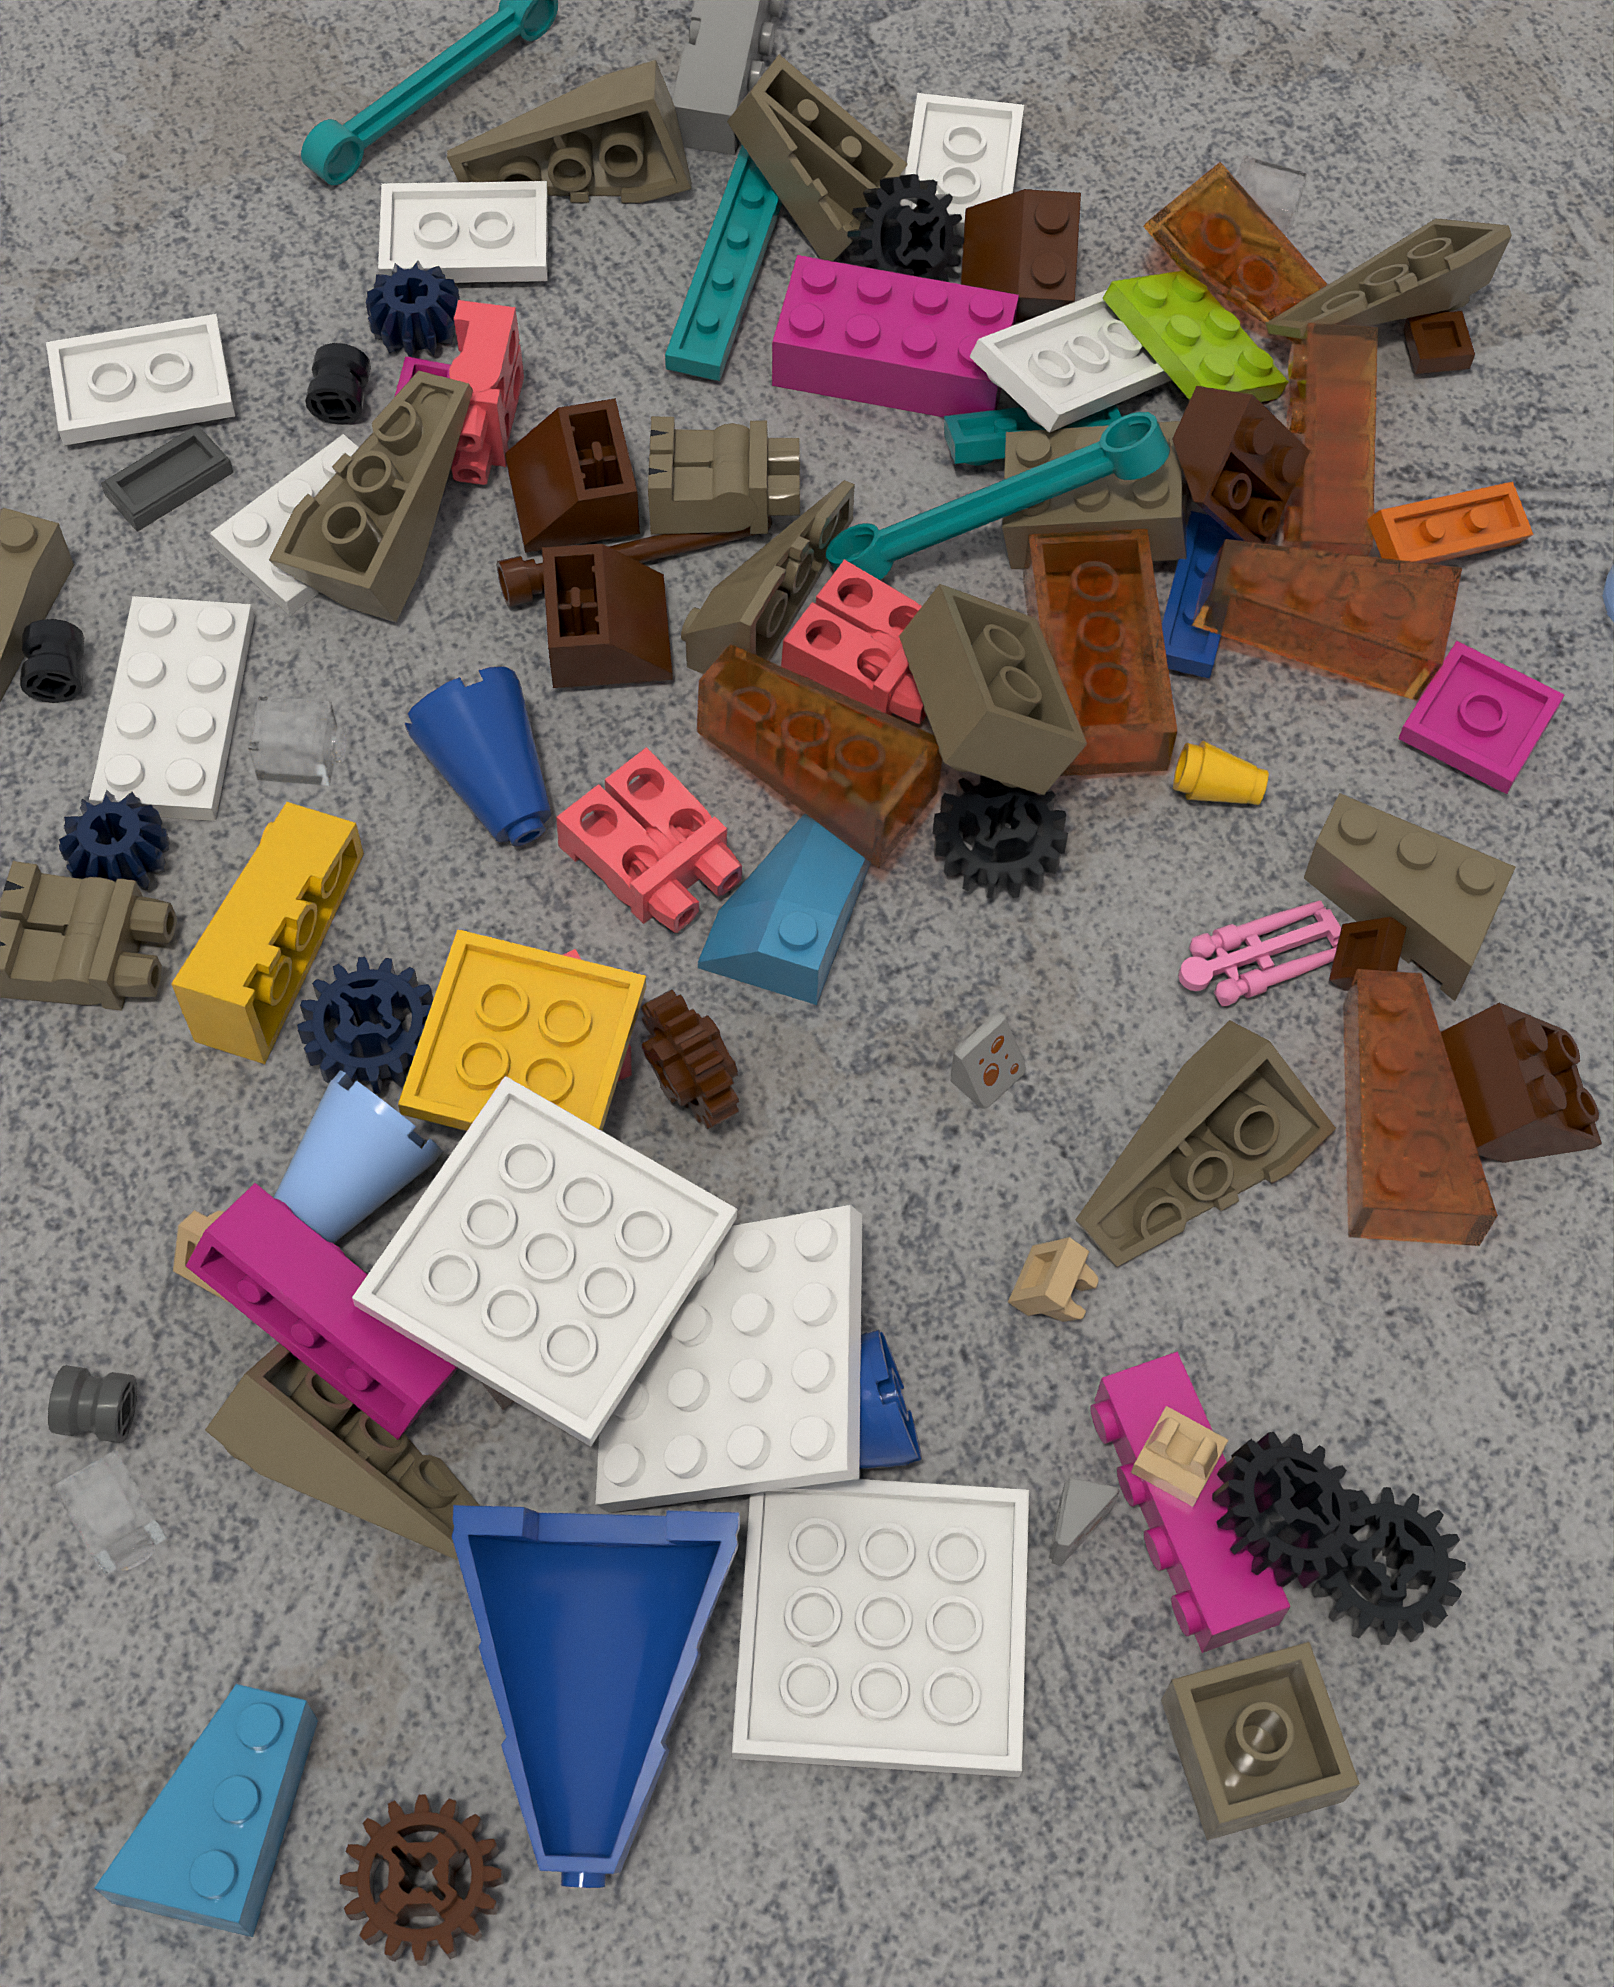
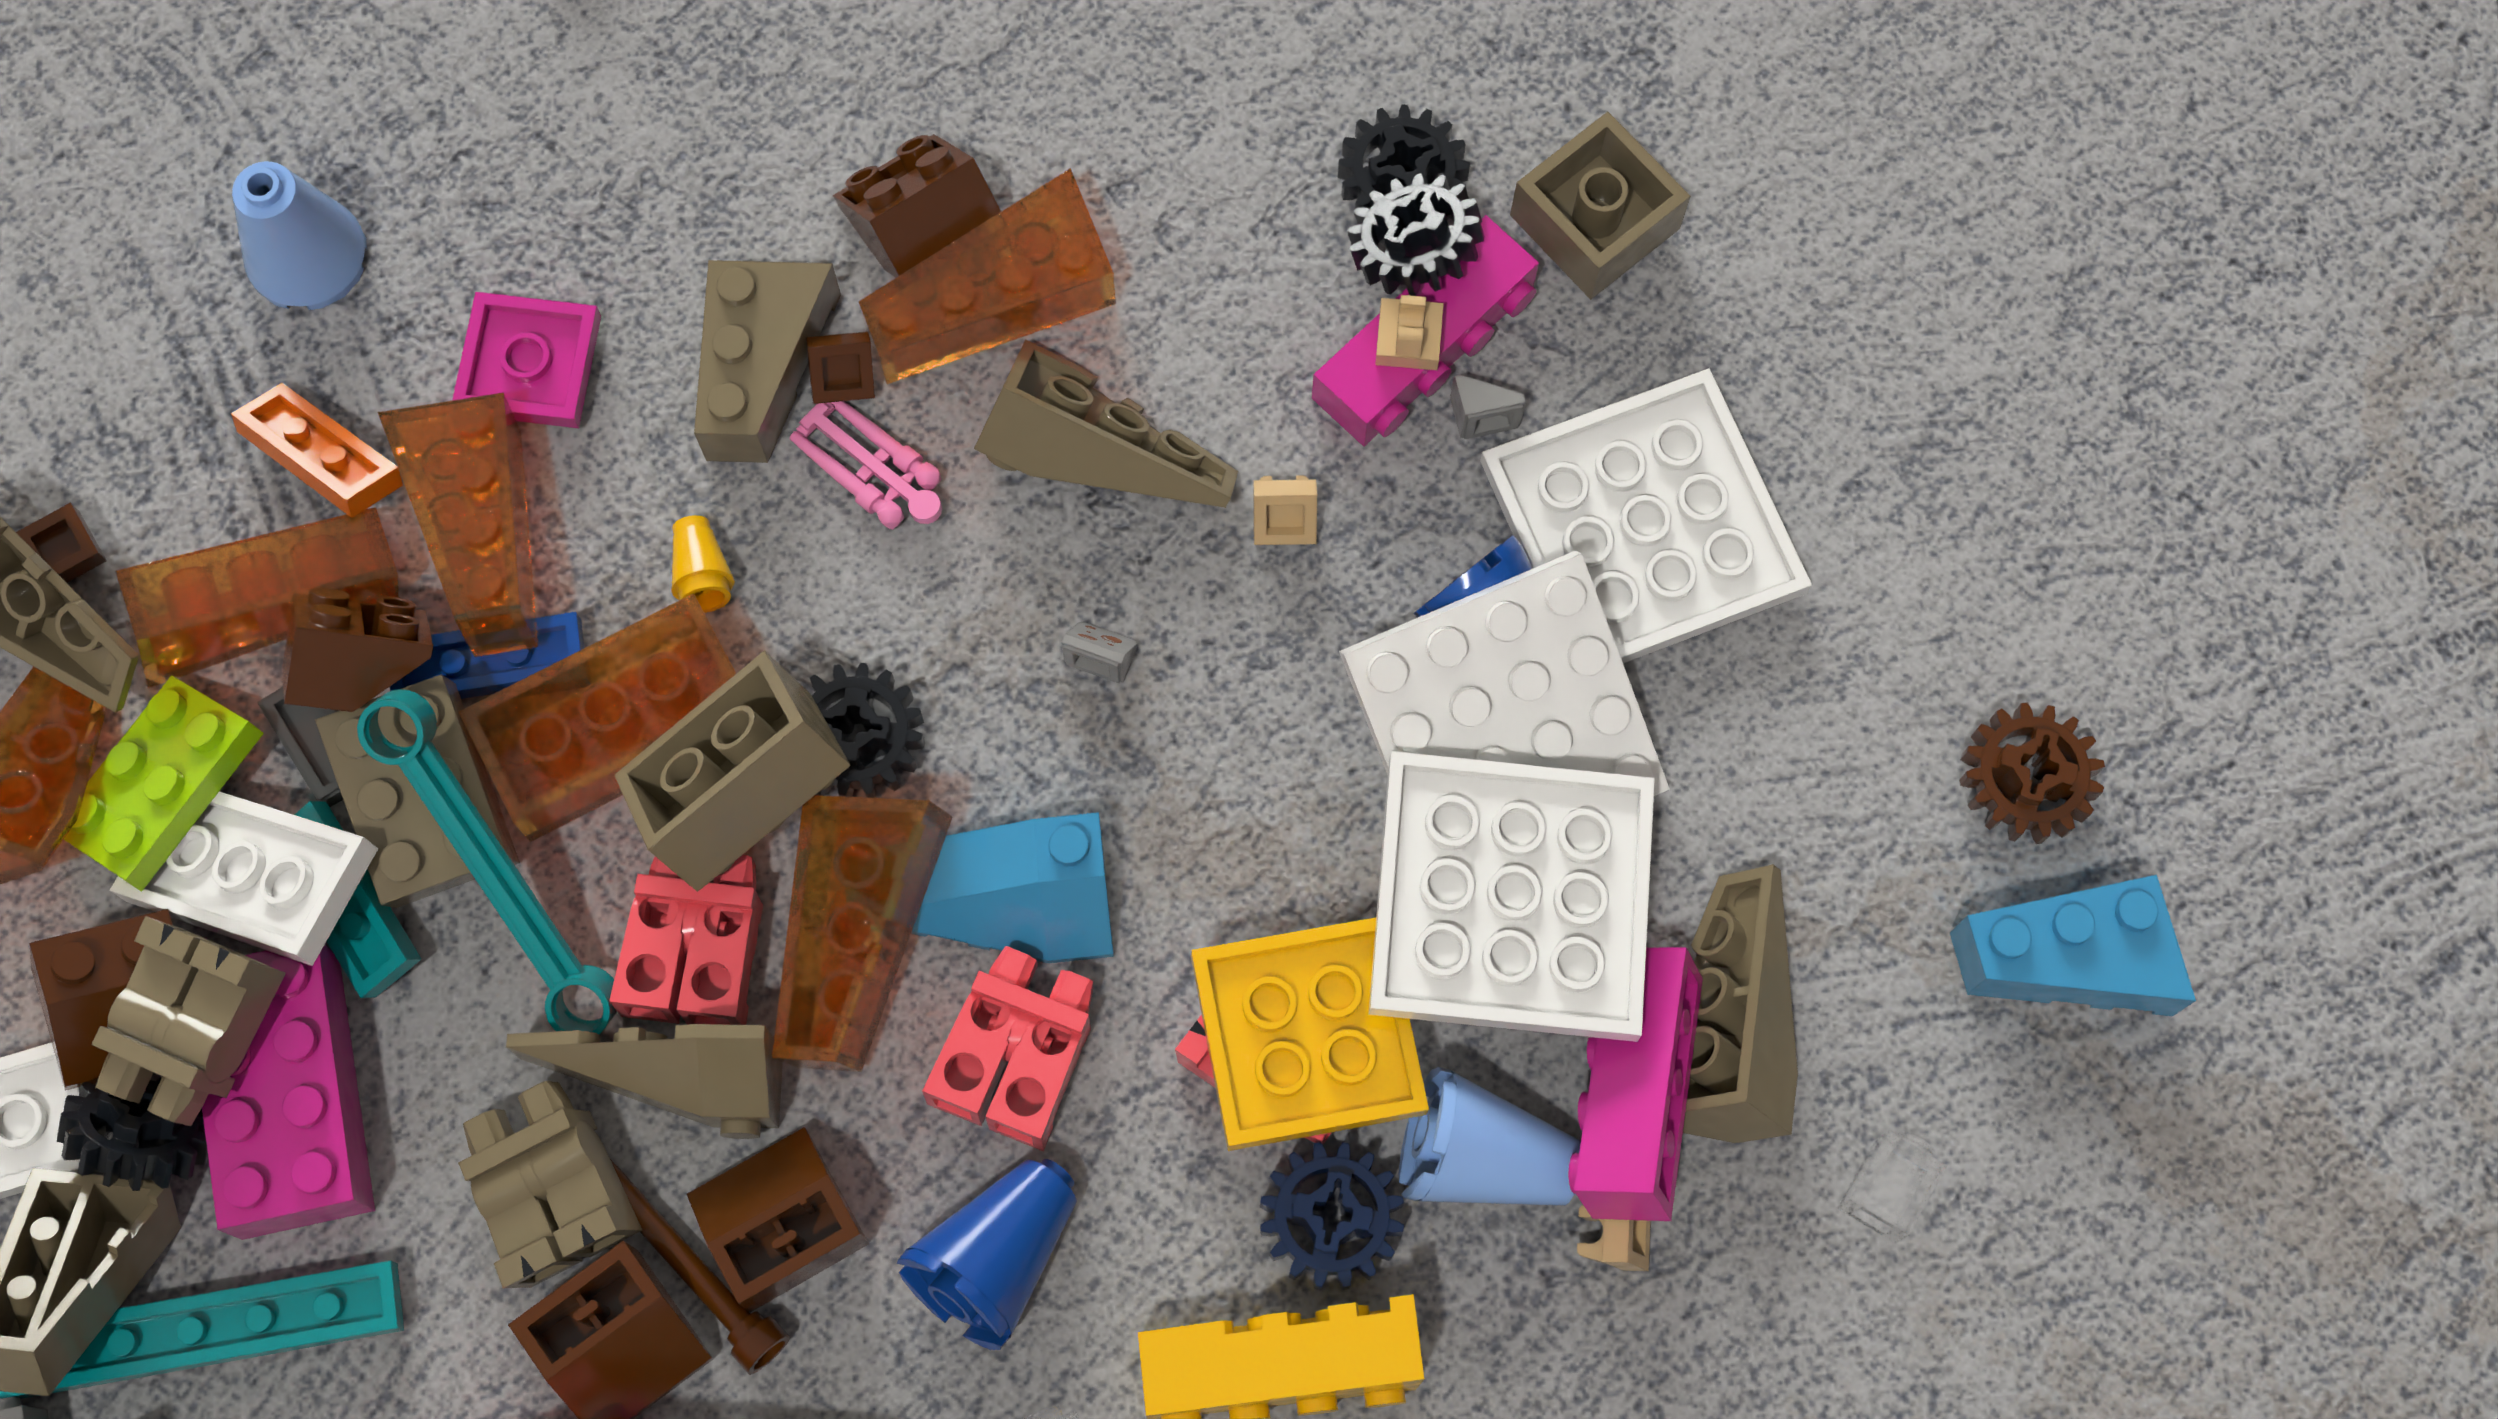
camera: 115 degrees left, 10 degrees up
(92, 1404) = (1810, 1259): dark grey wheel -> none
(588, 1660) = (1794, 713): blue cone -> none
(690, 1059) = (1240, 887): reddish brown gear -> none
(969, 263) = (184, 1018): none -> dark tan hips

